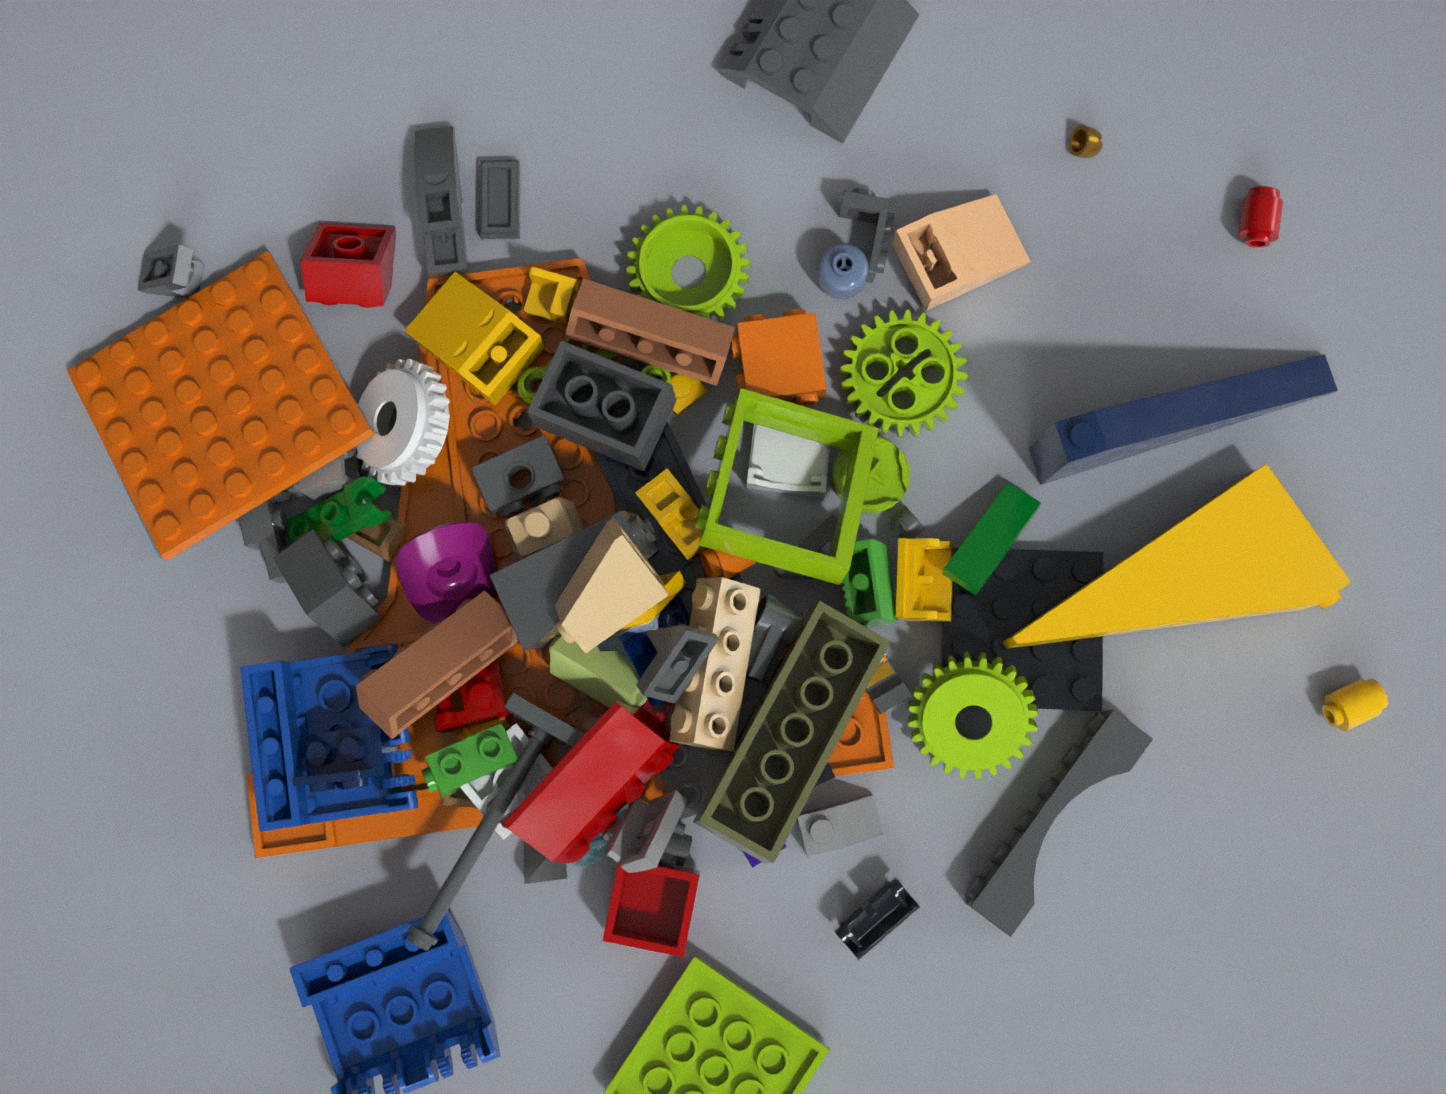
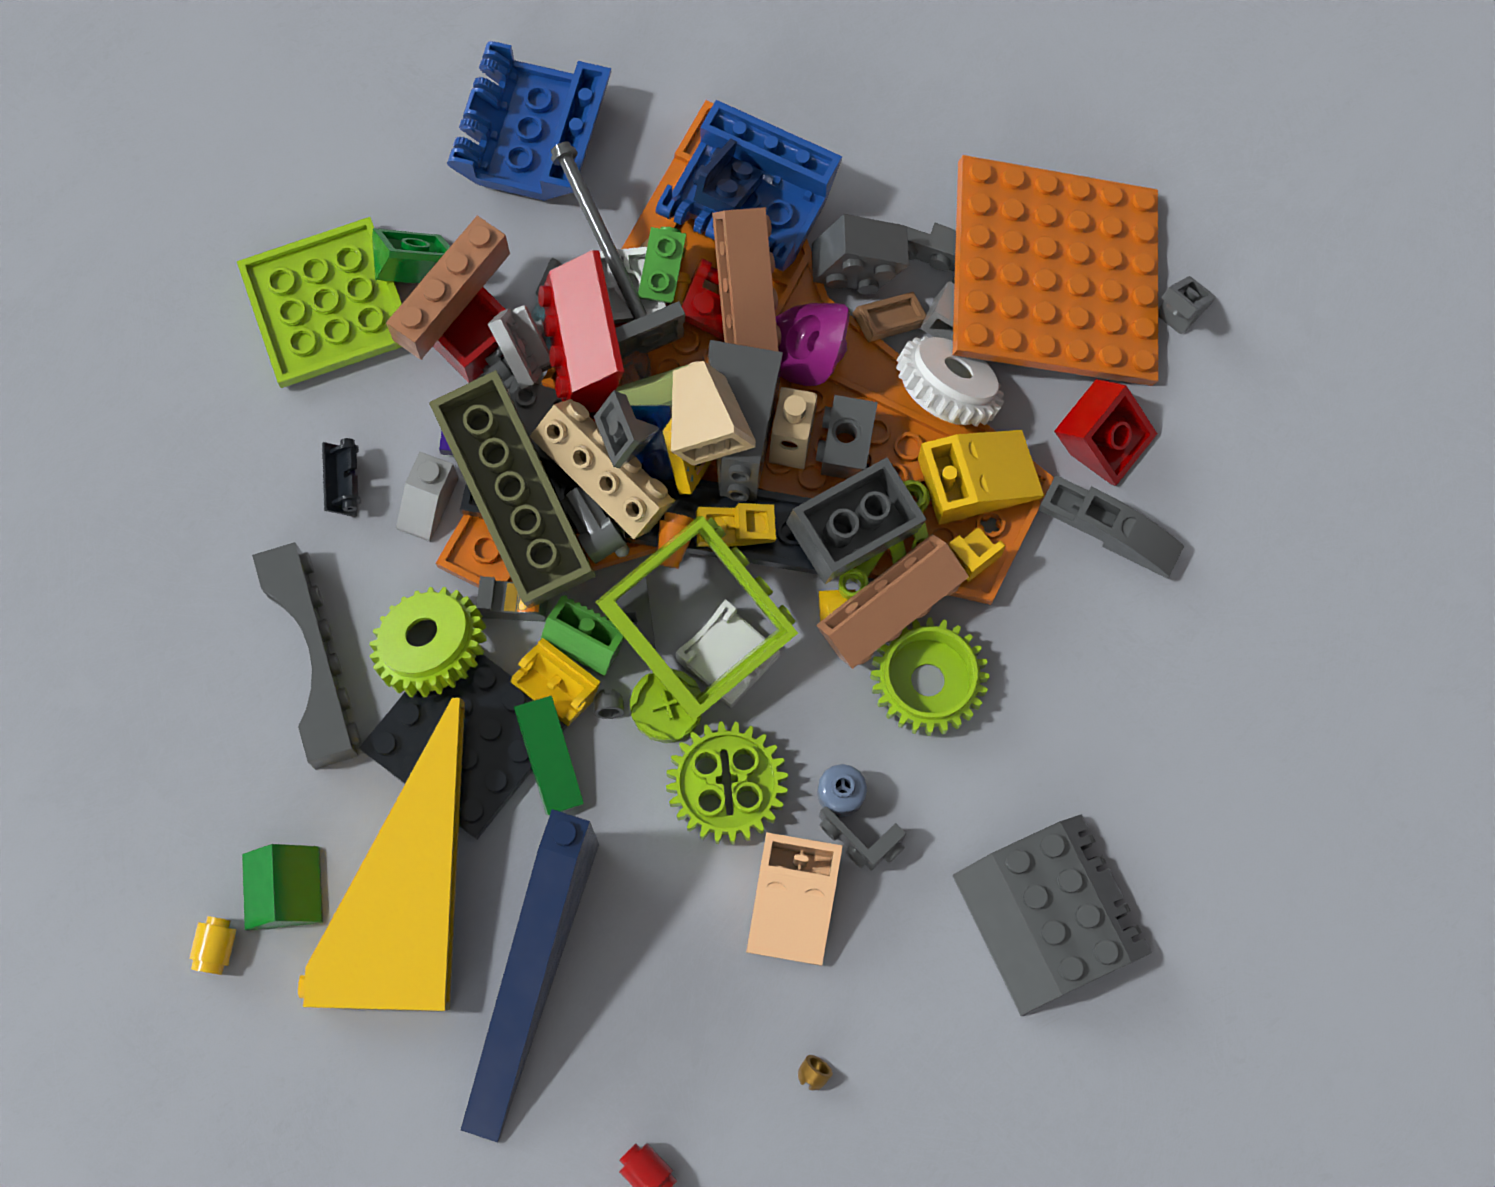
camera: 120 degrees right, 10 degrees down
(342, 513) = (911, 298): green plate -> none
(500, 199) = (1085, 576): dark grey tile -> none
(614, 1020) = (405, 255): none -> green slope
(635, 944) = (448, 287): none -> nougat brick
(781, 357) = (804, 692): orange brick -> none
(1263, 685) = (282, 886): none -> green slope

